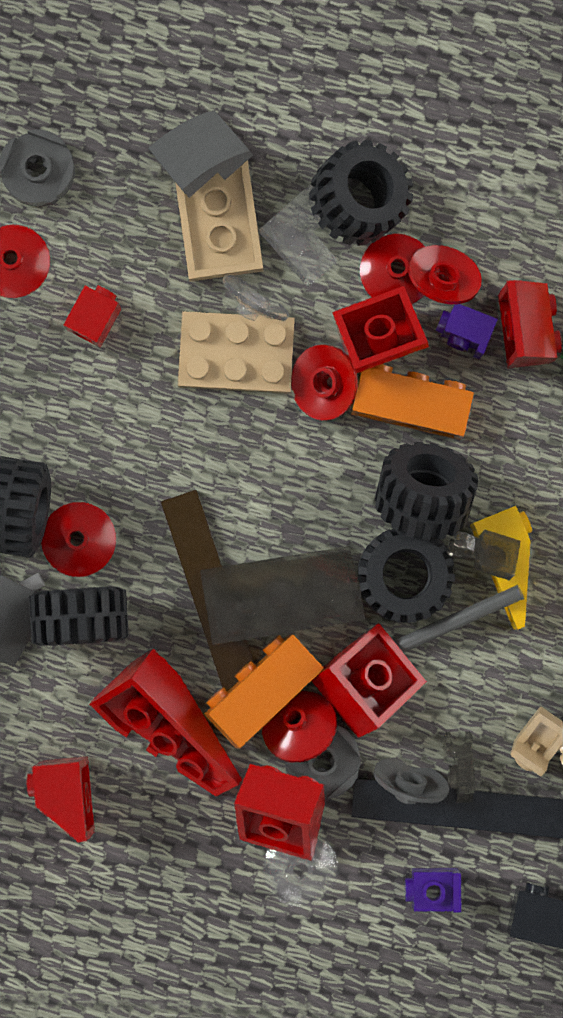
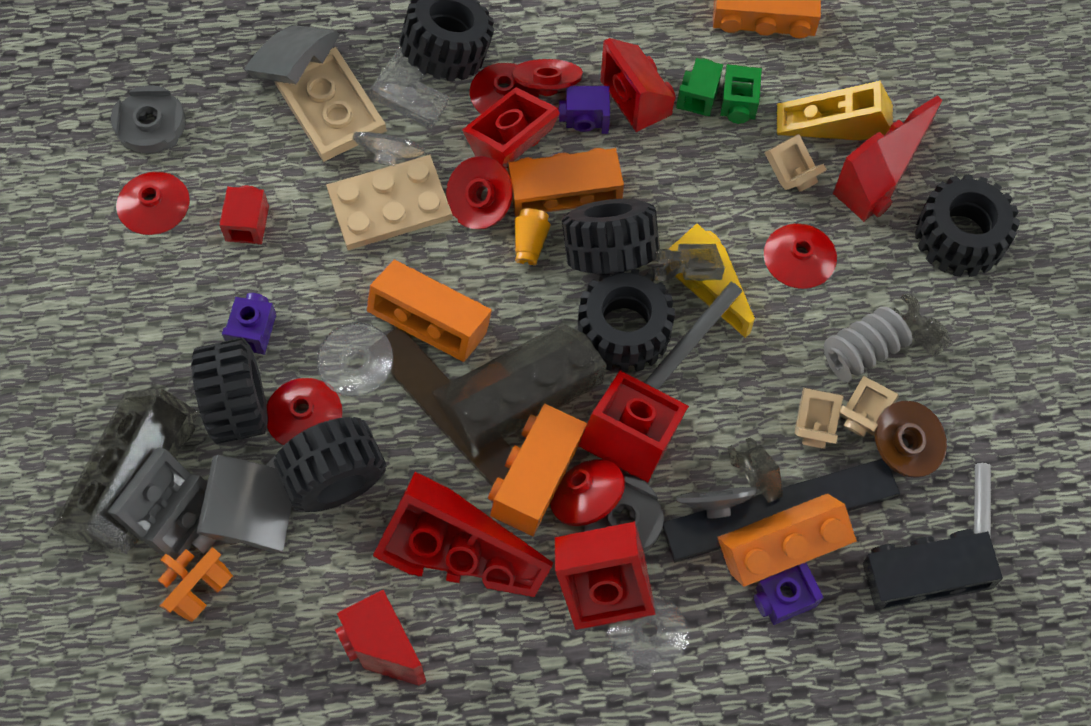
camera: 25 degrees left, 20 degrees down
(63, 447) = (256, 330): none -> dark purple brick
(123, 508) = (344, 346): none -> clear dish
(228, 488) = (428, 310): none -> orange brick
(355, 445) = (530, 235): none -> light orange cone
(455, 846) = (787, 539): none -> orange brick

